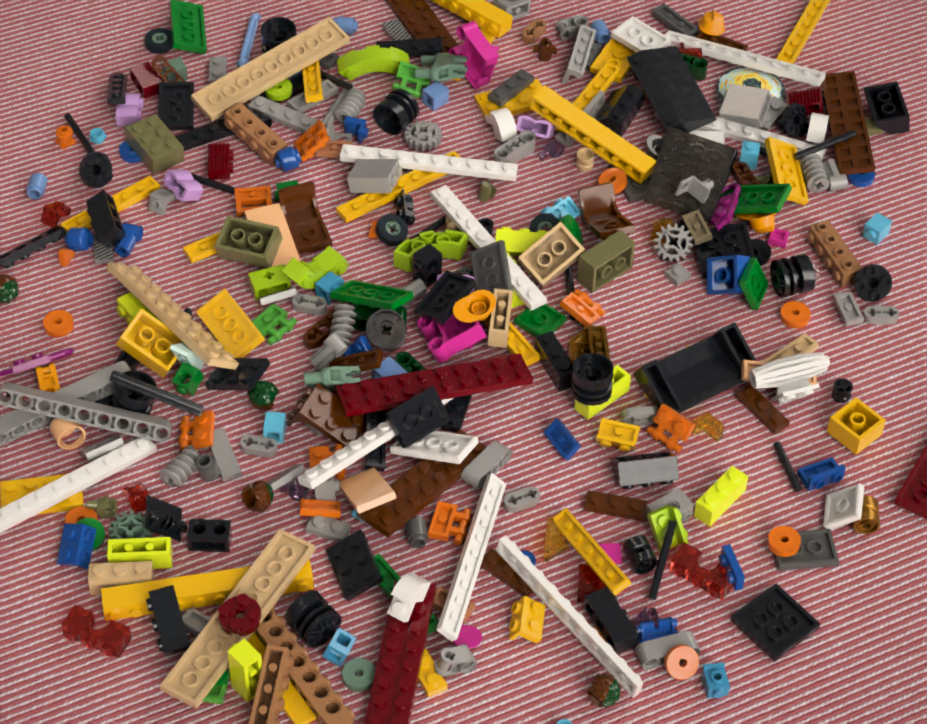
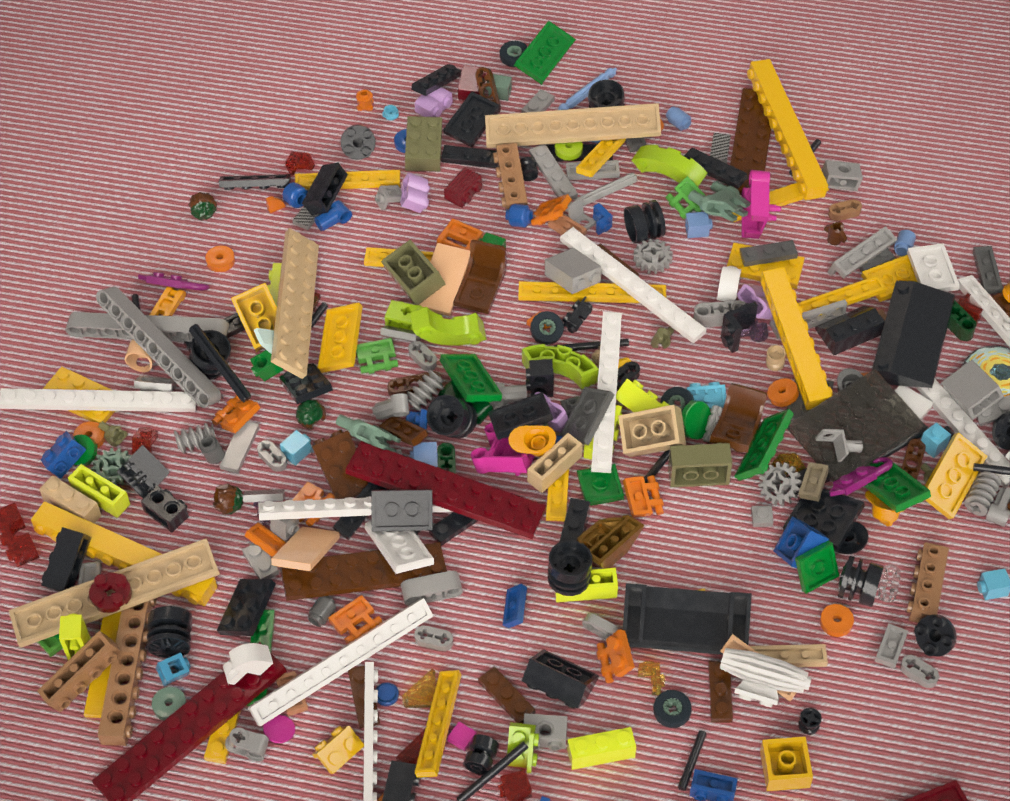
camera: 40 degrees right, 5 degrees up
(36, 185) = (305, 131): medium blue brick -> none
(79, 133) = (379, 105): black bar -> none
(214, 184) = (441, 202): black bar -> none
(327, 284) = (449, 346): dark azure brick -> none
(335, 80) = (623, 164): black bar -> none
(350, 105) = (613, 195): light grey piece -> none
(538, 152) = (734, 322): none -> black bracket
(571, 26) = (880, 222): light grey piece -> none
(584, 230) = (712, 421): none -> light grey axle
(618, 435) = (566, 633): yellow bracket -> none
(638, 211) = (764, 445): none -> green plate
(749, 437) = (669, 699): none -> black bush
(778, 238) = (891, 536): dark pink tile -> none

